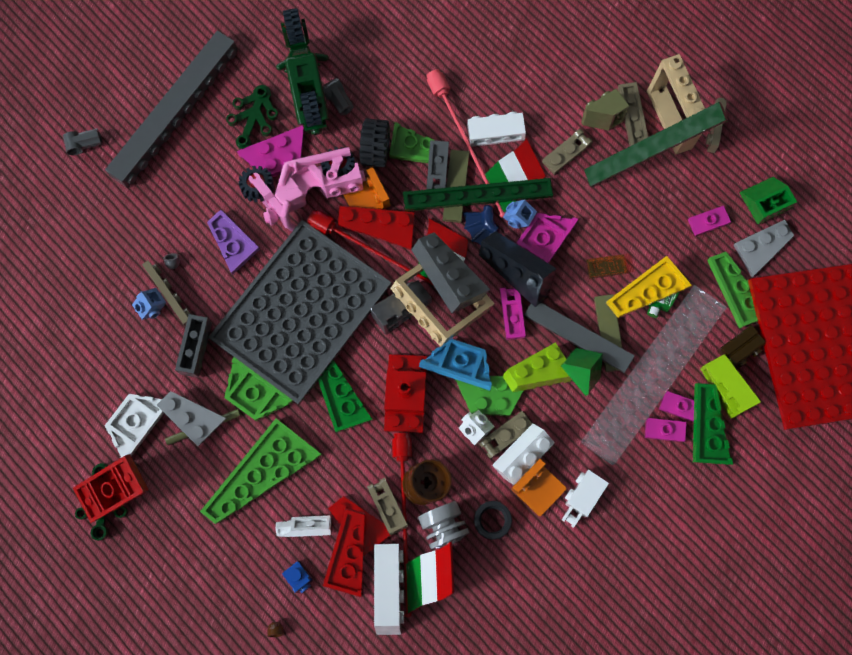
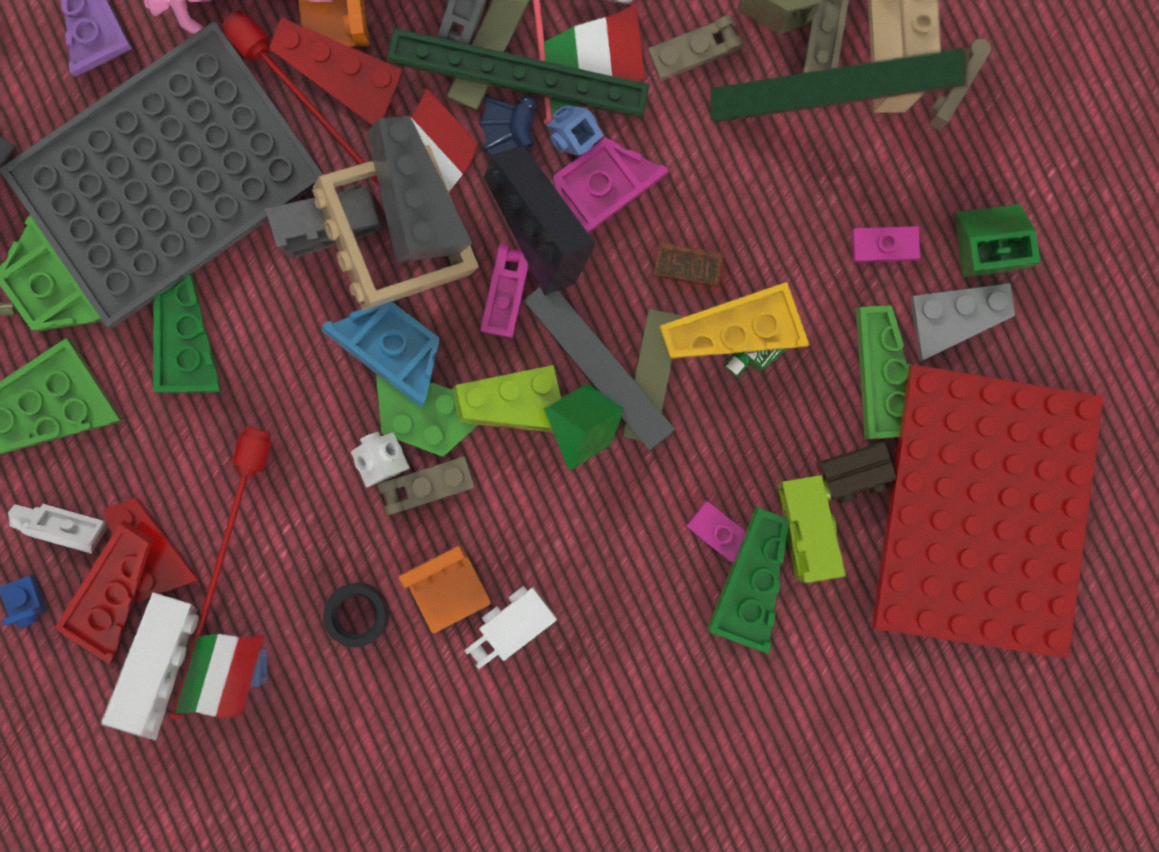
camera: 15 degrees right, 10 degrees up
(387, 507) = (196, 538): dark tan plate -> none
(405, 394) = (286, 367): red brick -> none
(434, 475) = (273, 541): reddish brown wheel -> none
(443, 525) = (271, 600): light grey wheel -> none
(523, 454) = (438, 528): white brick -> none
(653, 375) = (696, 469): clear brick -> none
(665, 430) = (683, 563): dark pink plate -> none

